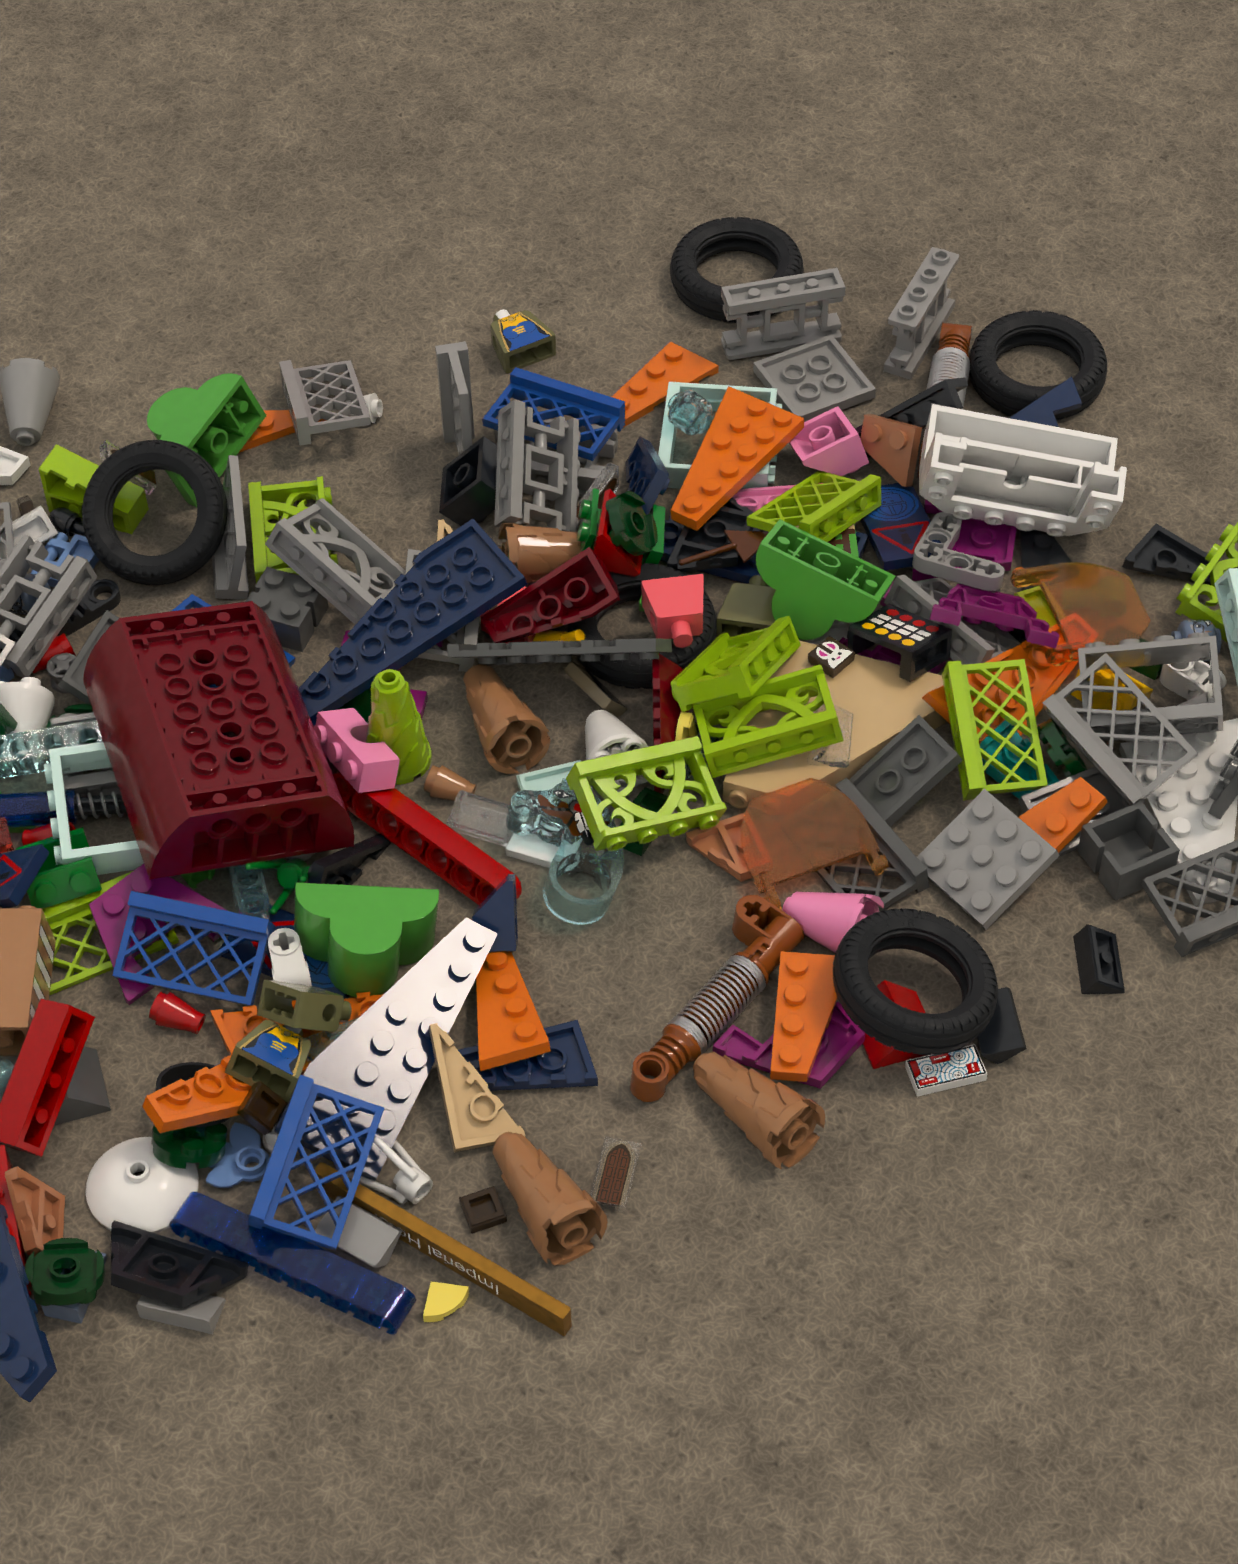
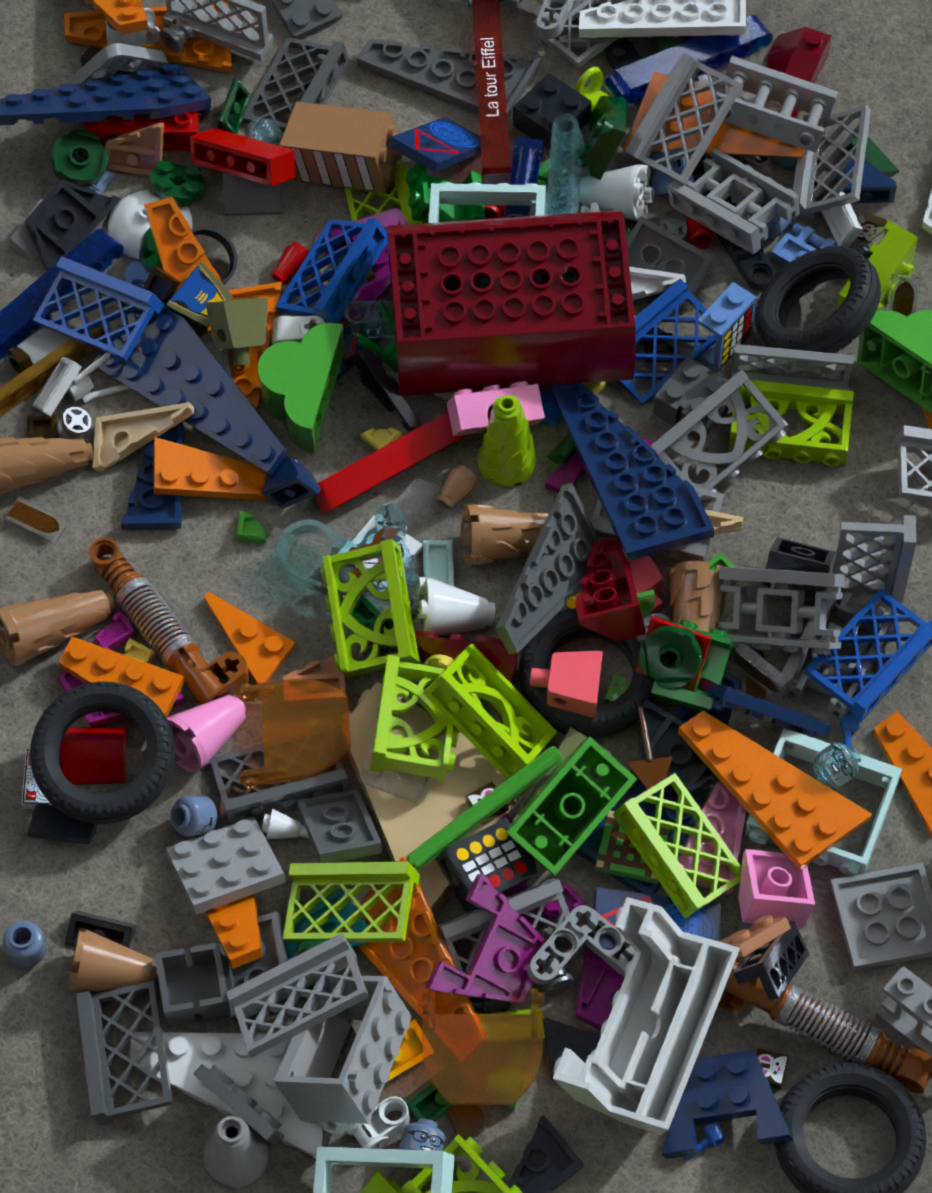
camera: 105 degrees right, 10 degrees up
(87, 1144) = (167, 176): none -> dark green plate
(196, 575) = (731, 322): none -> medium blue panel
(394, 1255) = (19, 360): none -> dark brown tile
(402, 870) = (380, 437): none -> light yellow tile
(426, 1195) = (56, 386): none -> white tile
(473, 1168) = (73, 417): none -> flat silver wheel
(557, 962) = (250, 529): none -> bright green tile
(626, 441) = (847, 725): none -> blue hand
(701, 917) = (258, 643): none -> orange wing
(758, 1021) = (138, 651): none -> light yellow tile
(846, 644) = (485, 807): none -> bright green axle
(914, 833) = (282, 827): none -> white cone
(940, 899) = (194, 815): none -> sand blue head
(1145, 936) = (106, 965): none -> medium nougat cone
(1152, 1011) = (24, 944): none -> sand blue head
(1158, 625) = (467, 1120): none -> dark brown tile

